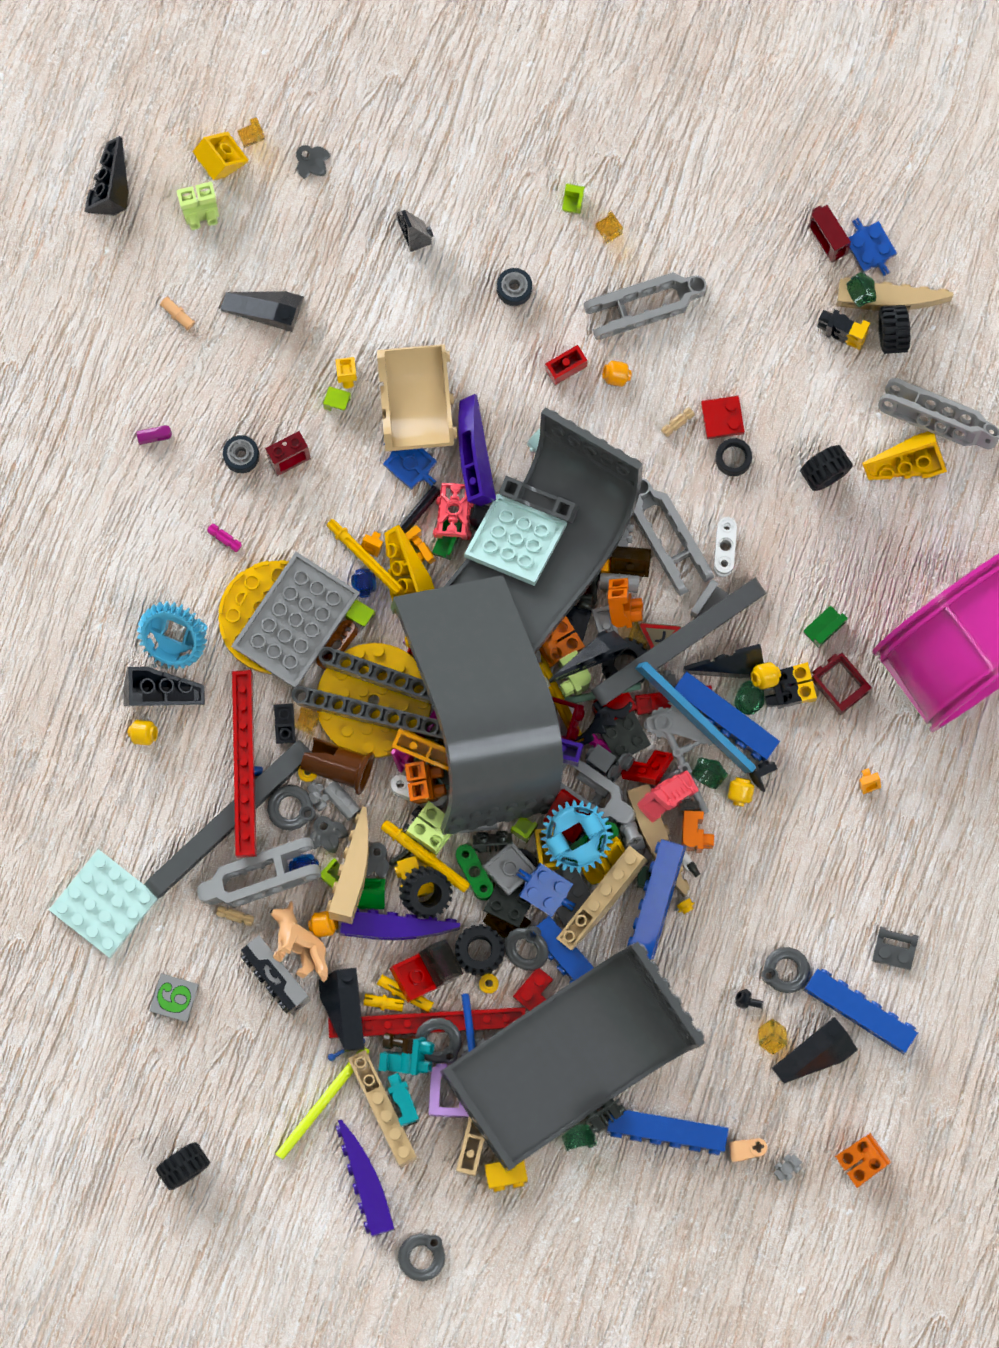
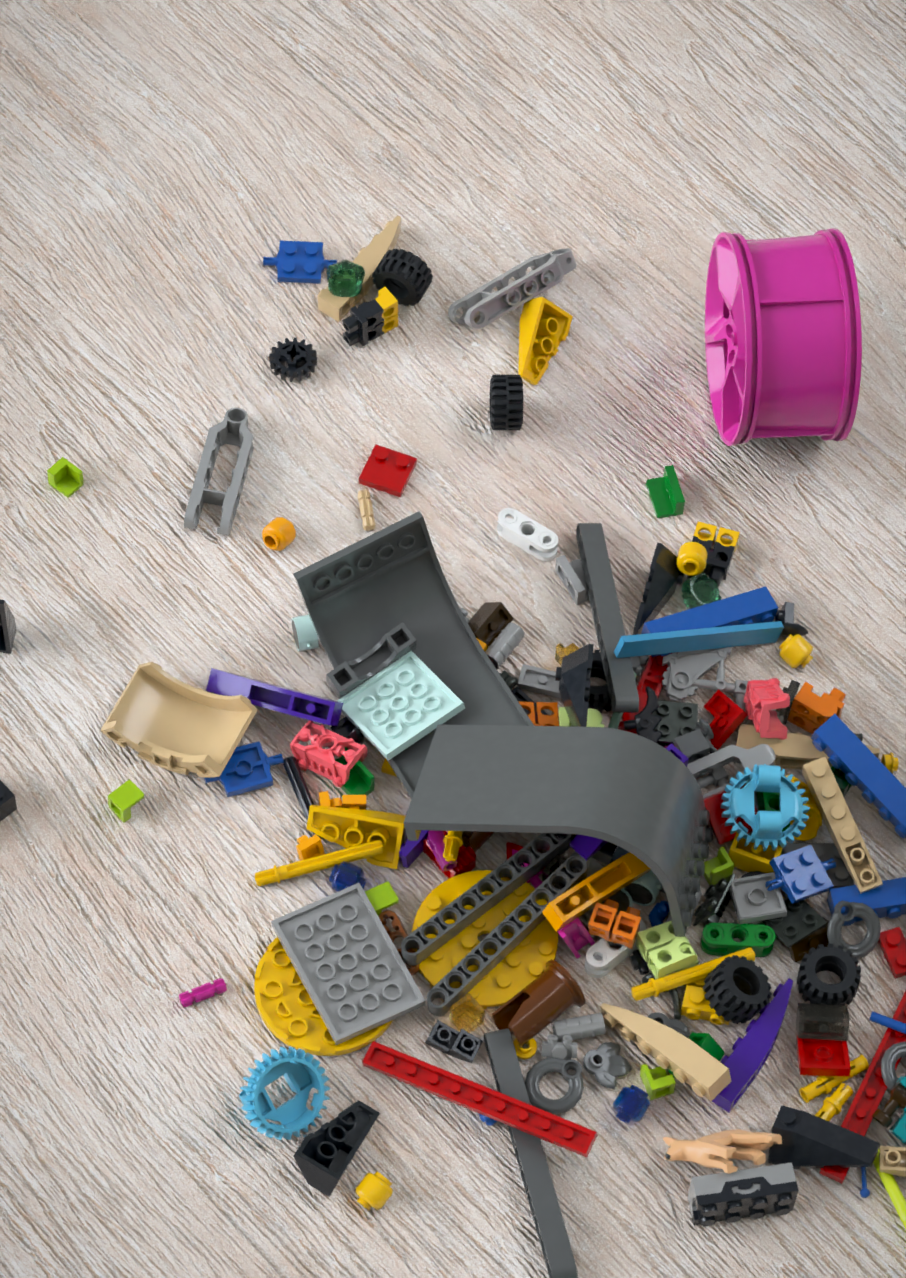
camera: 65 degrees left, 20 degrees down
(154, 434) = (36, 1001): magenta bar -> none
(213, 890) = (607, 1207): light grey piece -> none
(235, 915) = (644, 1207): tan axle -> none
(237, 444) = (120, 936): wheel -> none
(287, 457) = (155, 871): dark red window -> none
(322, 925) = (708, 1118): light orange head -> none
(346, 372) = (102, 772): yellow tile -> none
(488, 990) = (867, 997): yellow plate -> none
(518, 277) = (125, 585): wheel -> none
(566, 365) = (239, 570): red brick -> none
(609, 227) = (118, 462): clear yellow panel -> none
(621, 605) = (532, 646): orange hips -> none
(631, 836) = (791, 764): light grey piece -> none
(650, 497) = (498, 564): light grey piece -> none
(657, 632) = (582, 635): piece -> none
(709, 772) = (760, 665): clear green hair -> none
(733, 442) = (437, 466): black tyre -> none
(779, 301) = (283, 355): none -> black gear
(829, 233) = (264, 292): dark red window -> none
(833, 661) = (736, 492): dark red window -> none
(869, 782) = (851, 537): light orange tile -> none

